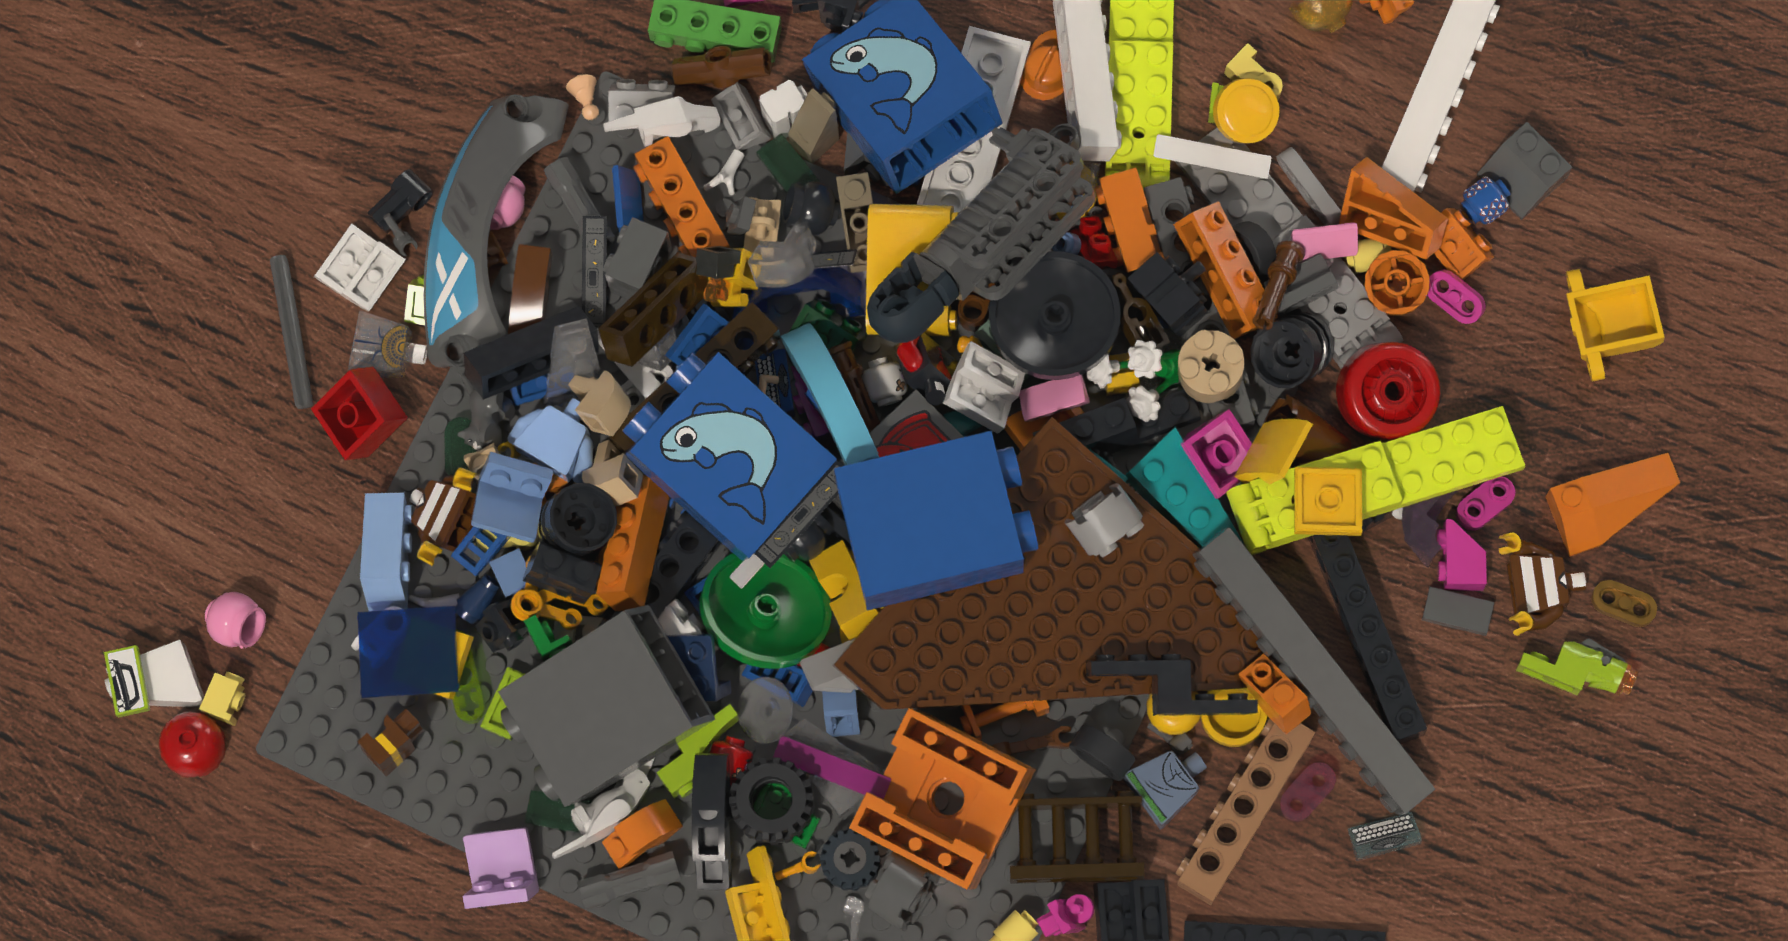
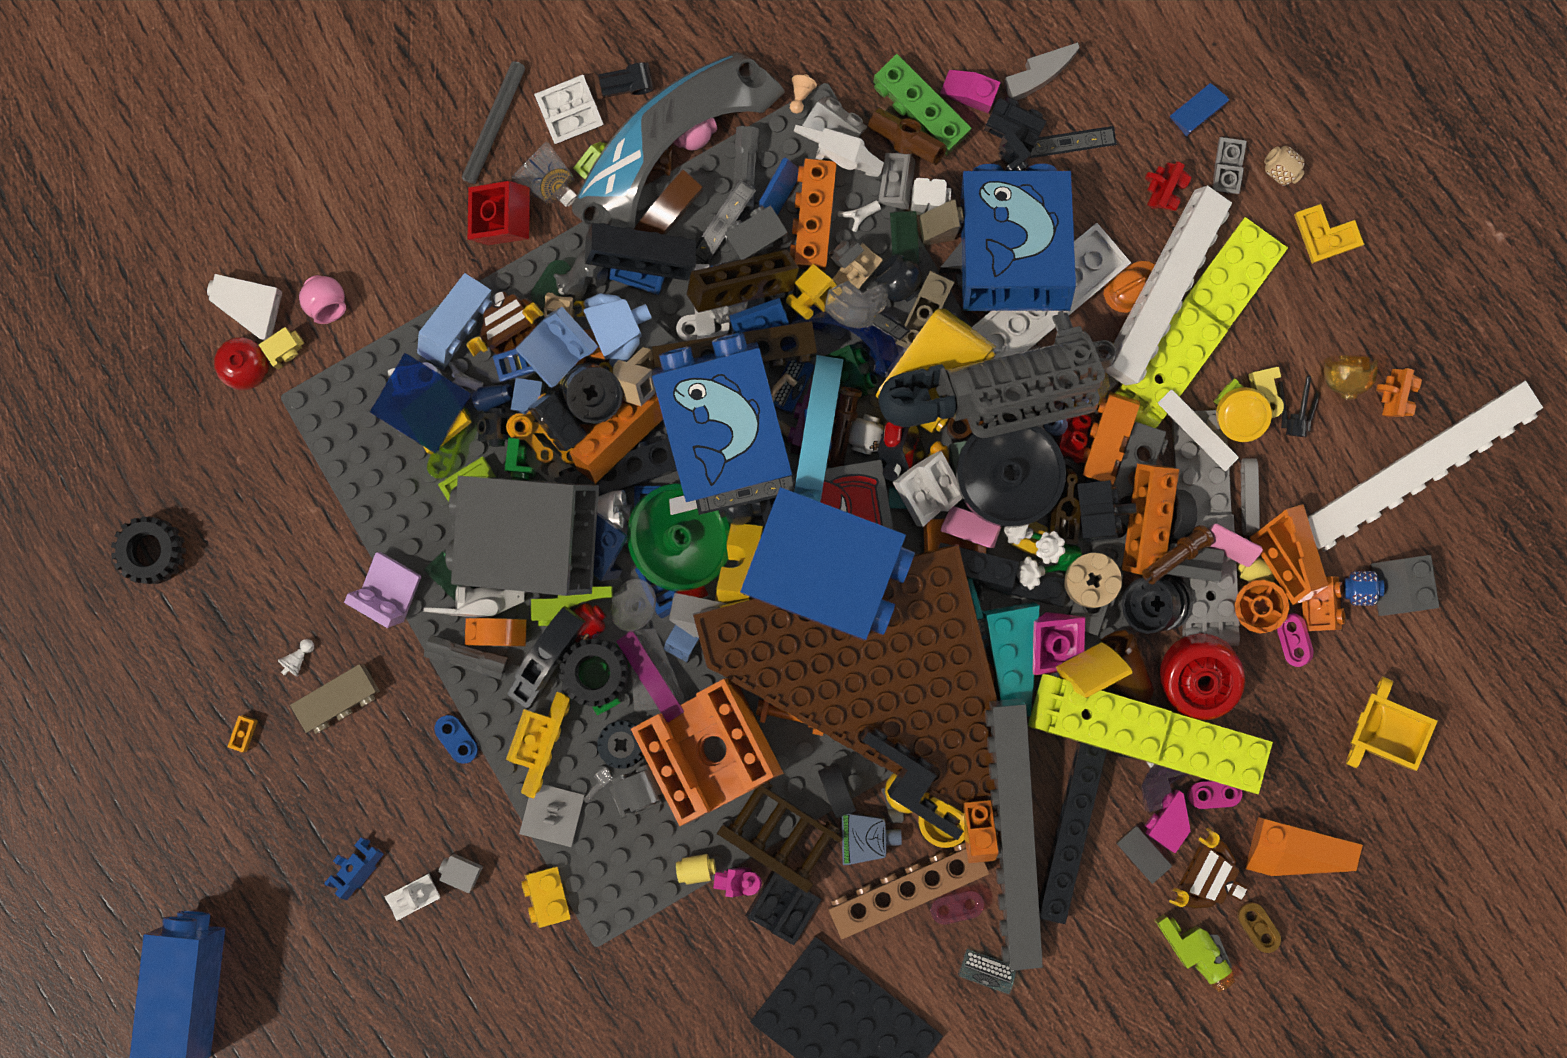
camera: 30 degrees right, 10 degrees up
(127, 681) = (222, 293): tile -> none
(394, 743) = (369, 459): reddish brown hips -> none
(401, 237) = (610, 107): dark grey hand -> none
(570, 355) = (662, 282): clear wing -> none
(602, 402) = (664, 323): tan brick -> none
(717, 264) = (806, 278): pearl dark grey piece -> none
(798, 867) = (582, 724): light orange hand -> none
(1032, 744) = (795, 749): reddish brown piece -> none
(1104, 521) = (943, 644): light grey brick -> none
(1308, 86) = (1298, 424): none -> black plant
(1328, 501) = (1106, 731): yellow tile -> none

